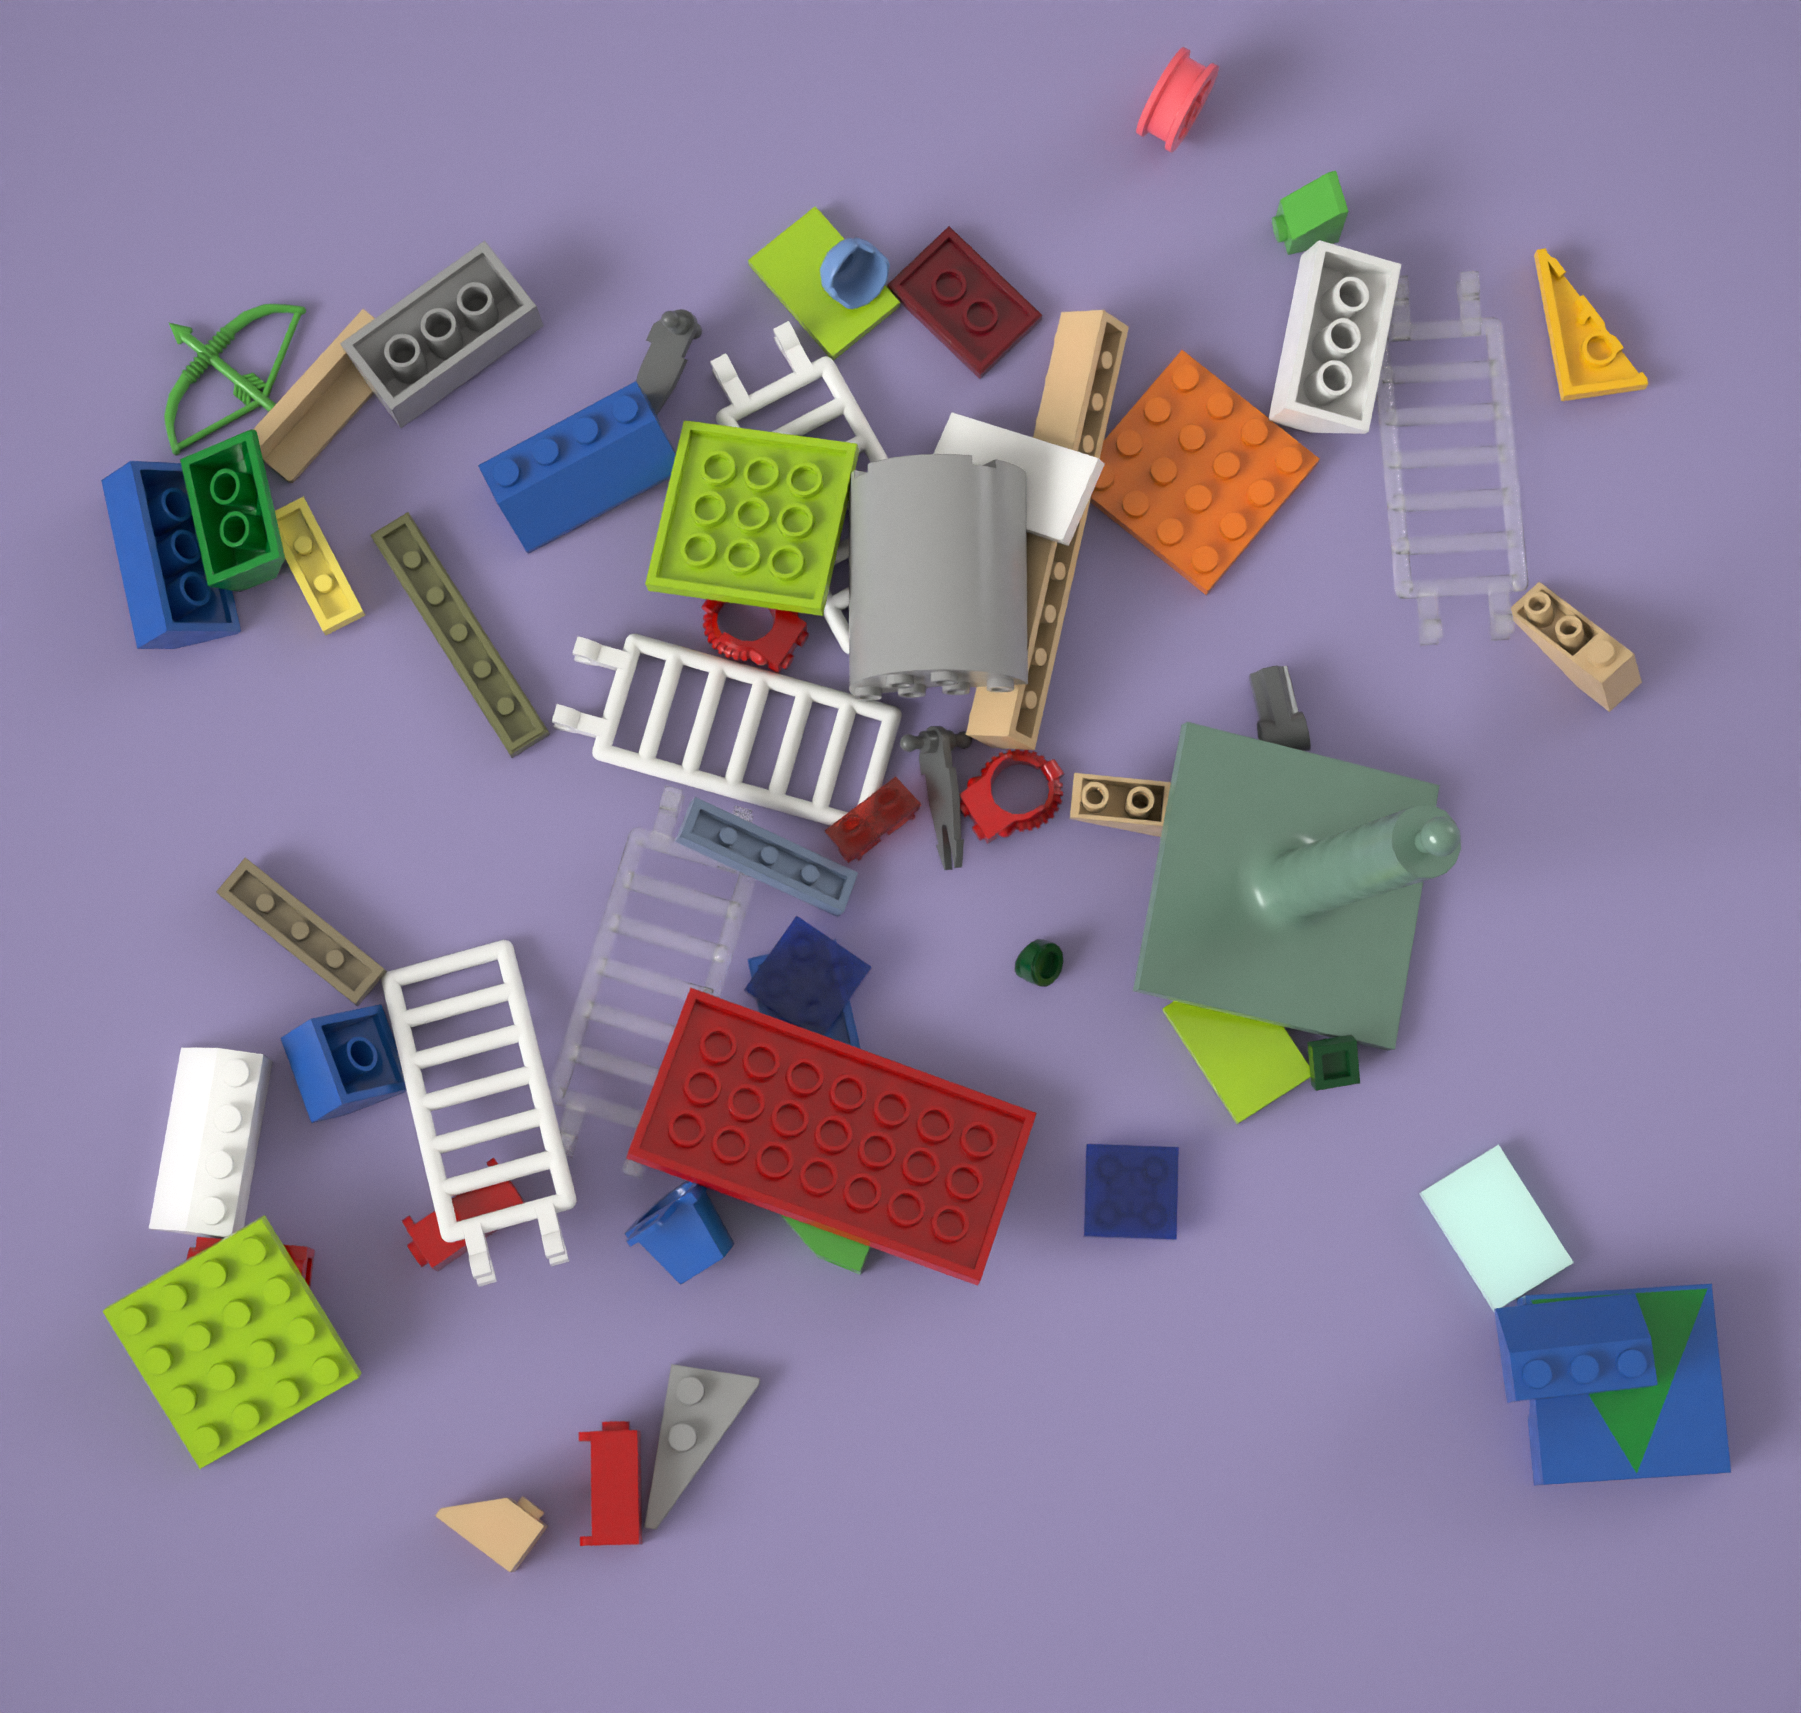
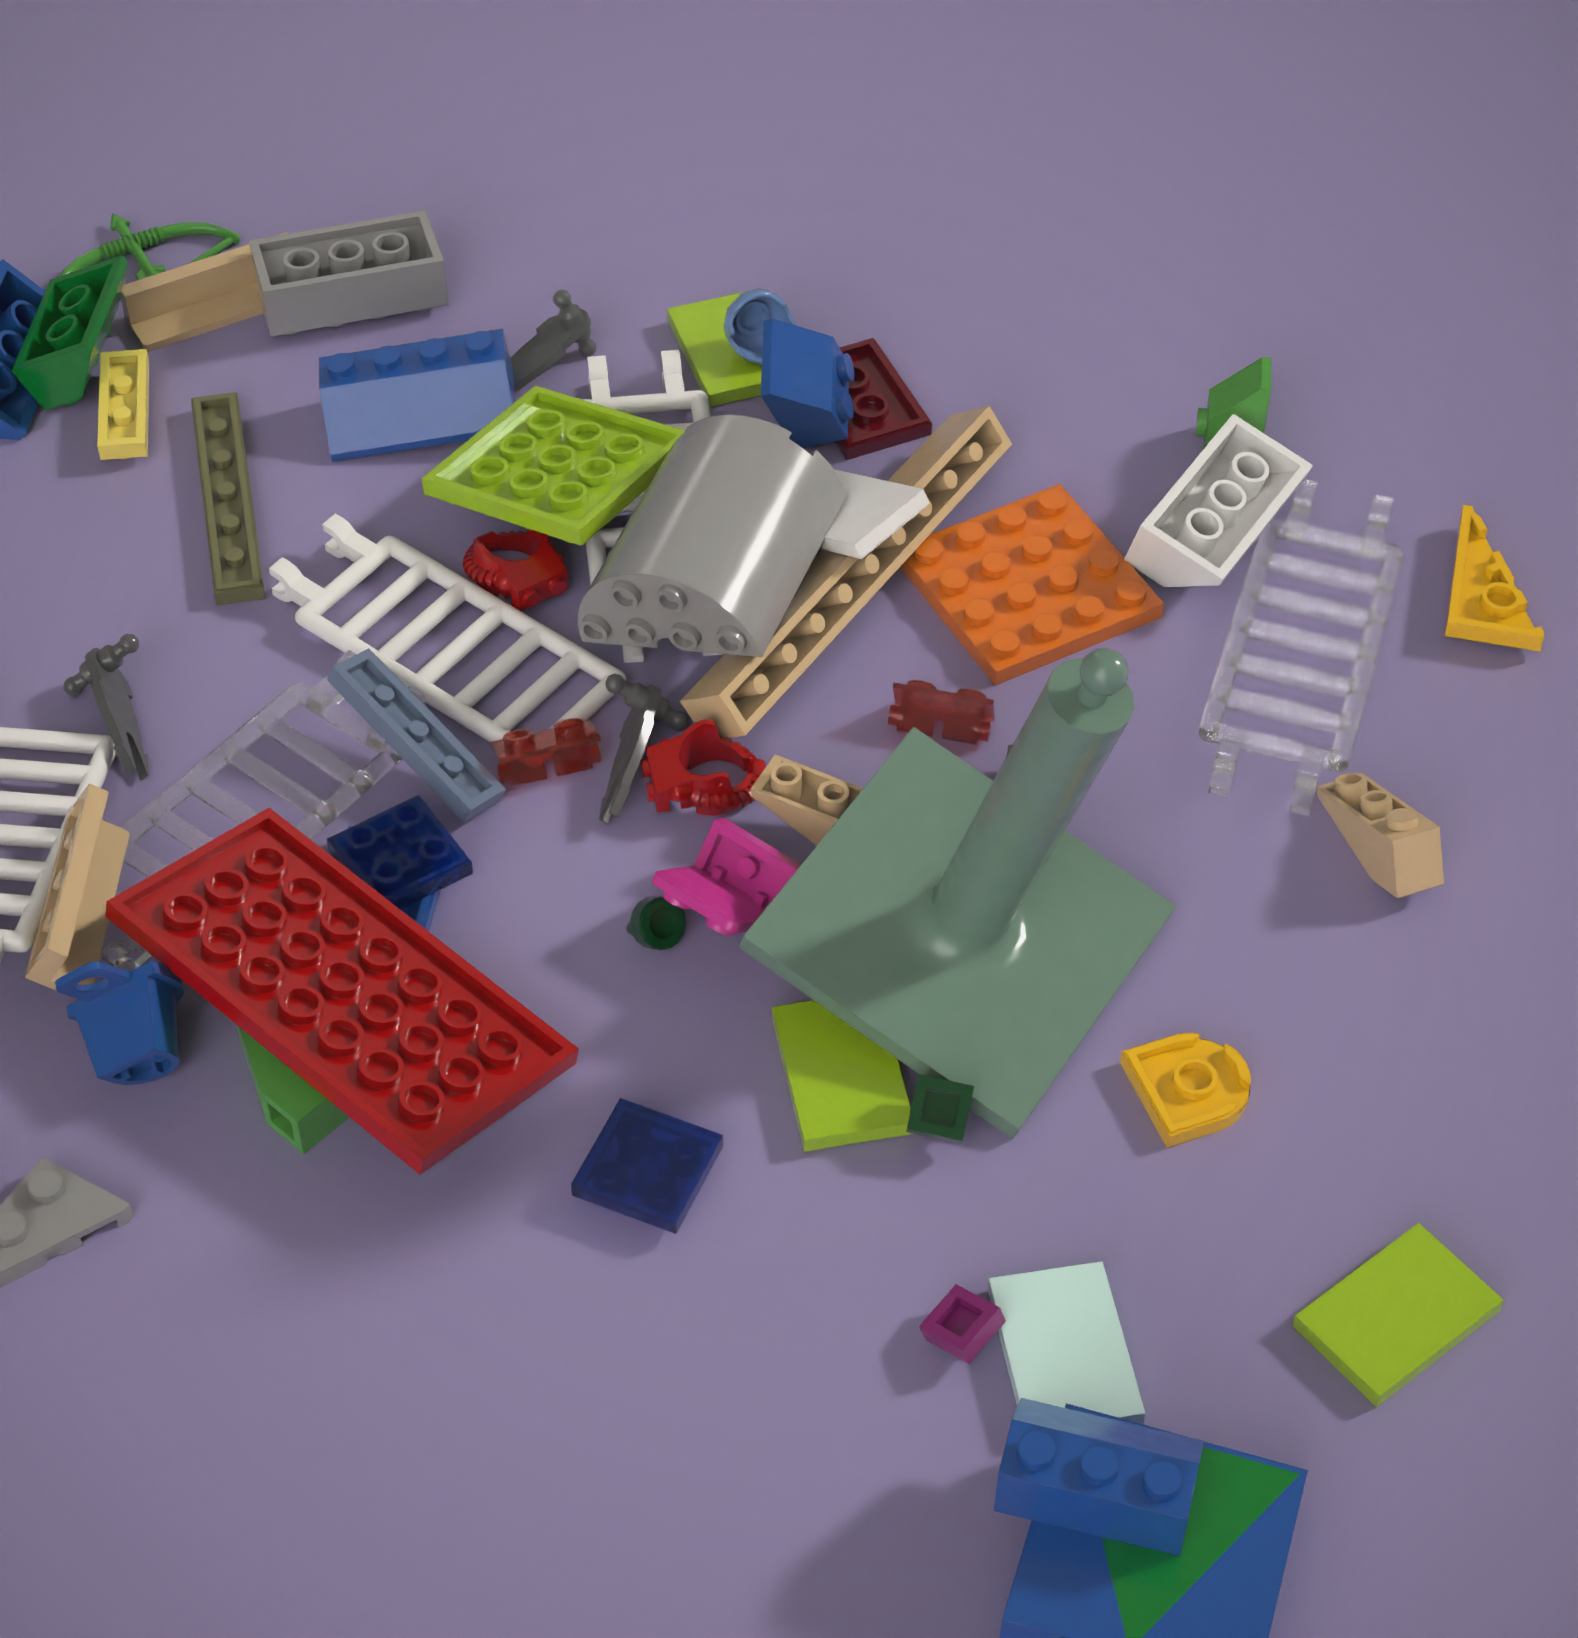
camera: 20 degrees right, 30 degrees down
(466, 880) = (113, 700): none -> dark grey piece
(585, 1137) = (81, 882): none -> tan panel
(927, 332) = (806, 383): none -> blue slope
(1087, 910) = (729, 880): none -> dark pink bracket
(1177, 99) = (1139, 293): coral wheel -> none
(1196, 649) = (961, 711): none -> clear red hinge
(1417, 1240) = (962, 1323): none -> magenta plate
(1505, 952) = (1188, 1085): none -> yellow tile
(1723, 1101) = (1397, 1314): none -> lime tile

